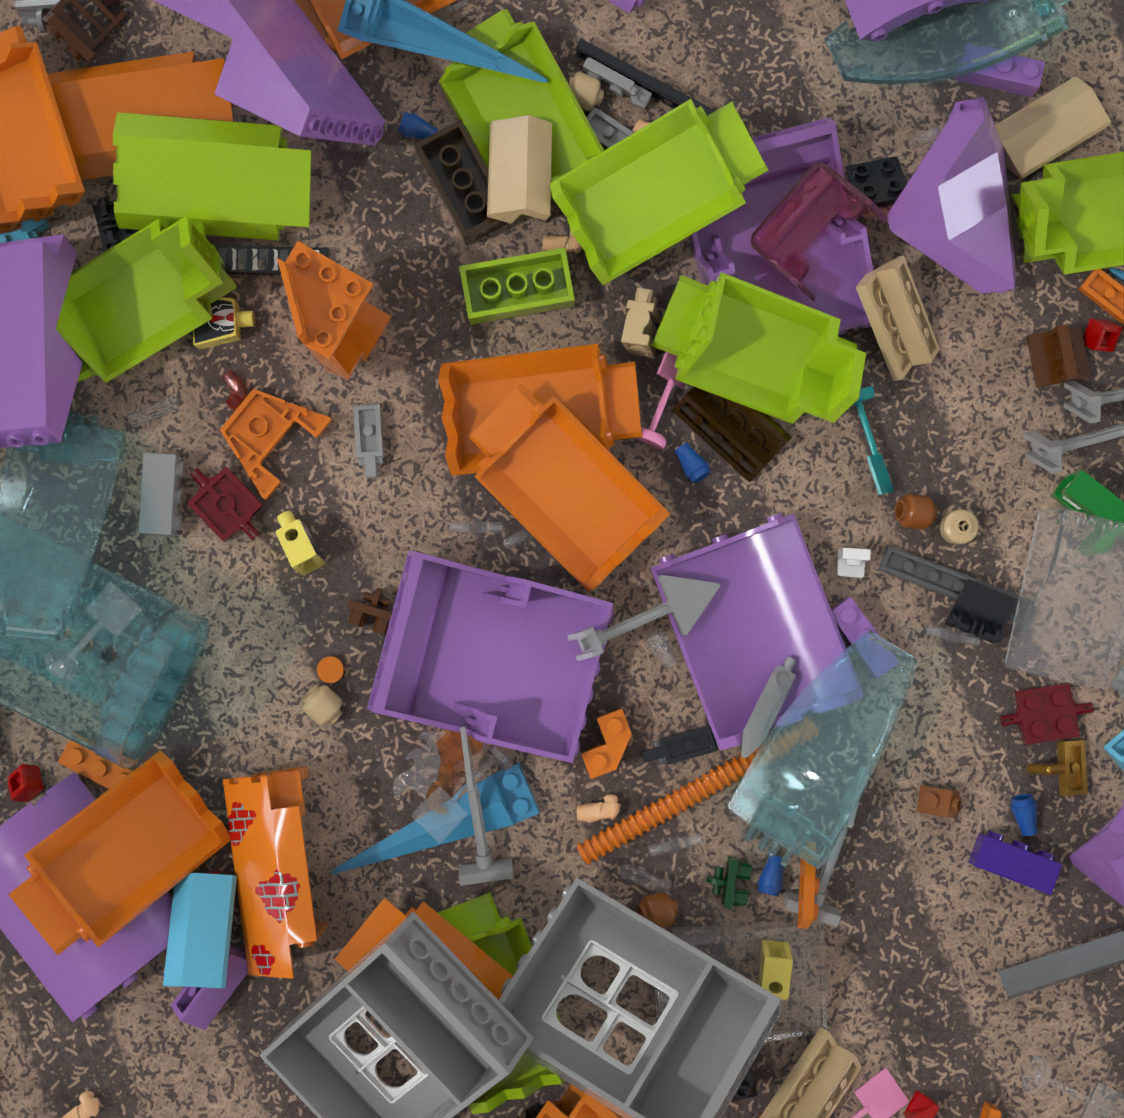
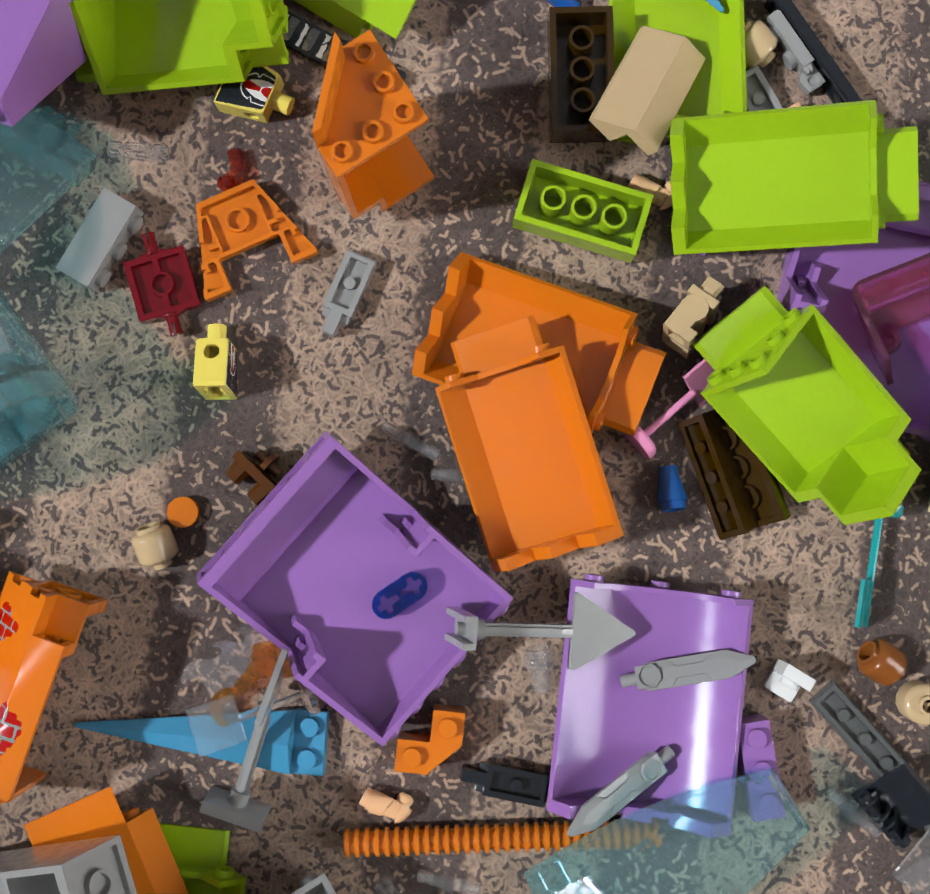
camera: 25 degrees right, 0 degrees up
(533, 648) = (403, 601): none -> clear blue beam
(772, 591) = (688, 670): none -> light grey piece

